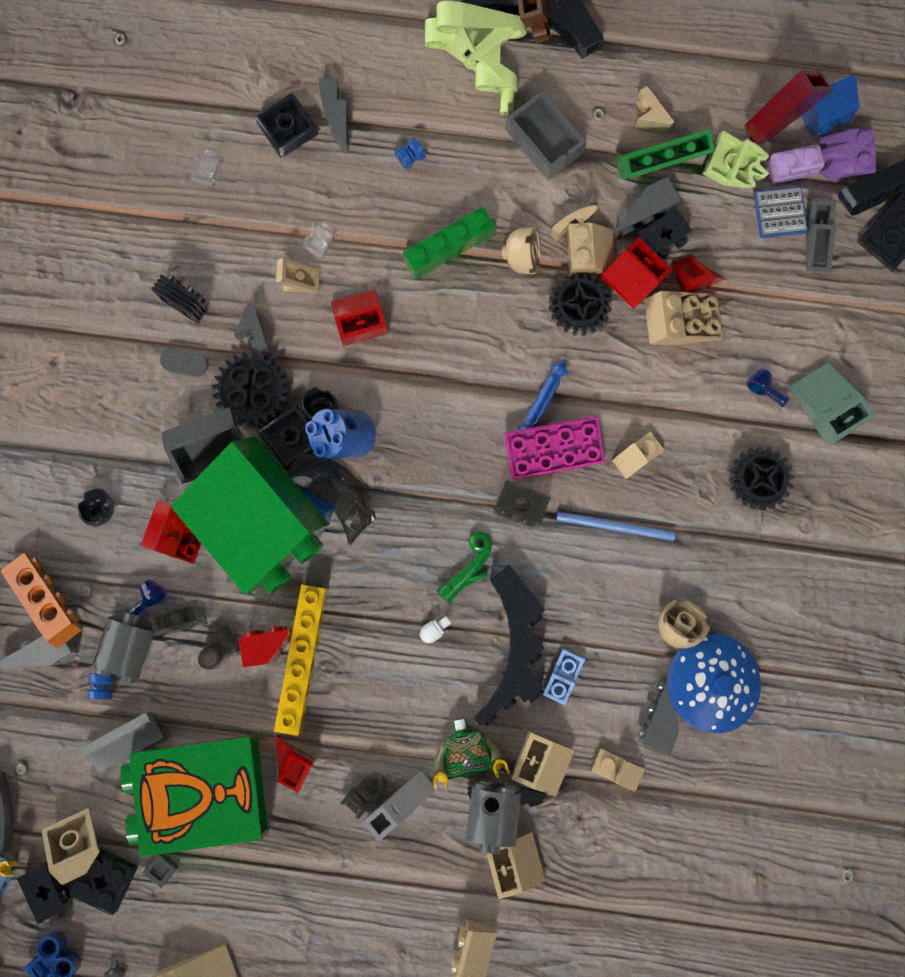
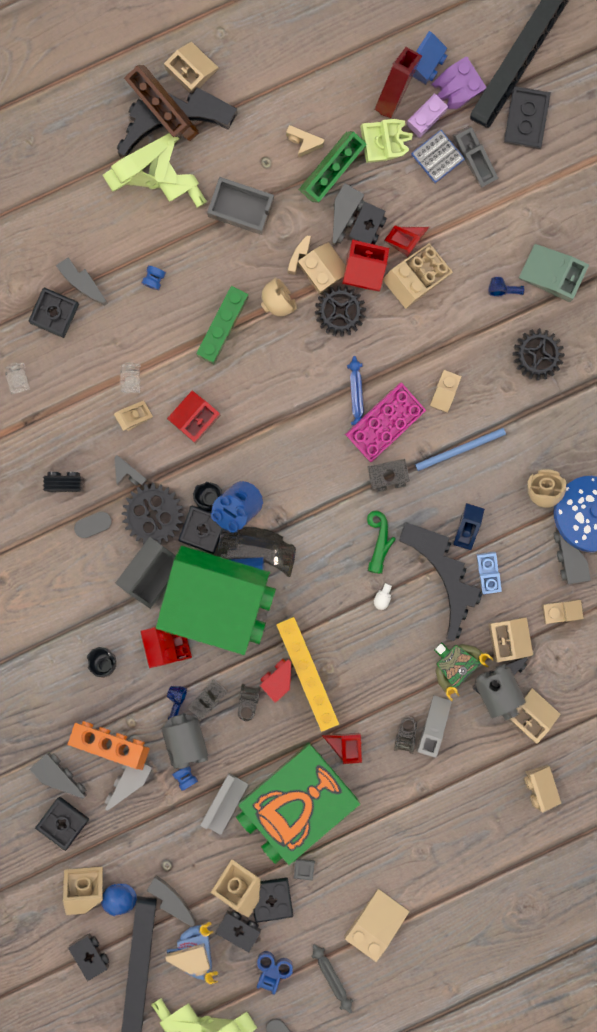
camera: 35 degrees left, 5 degrees up
(573, 612) = (468, 526): none -> dark blue slope

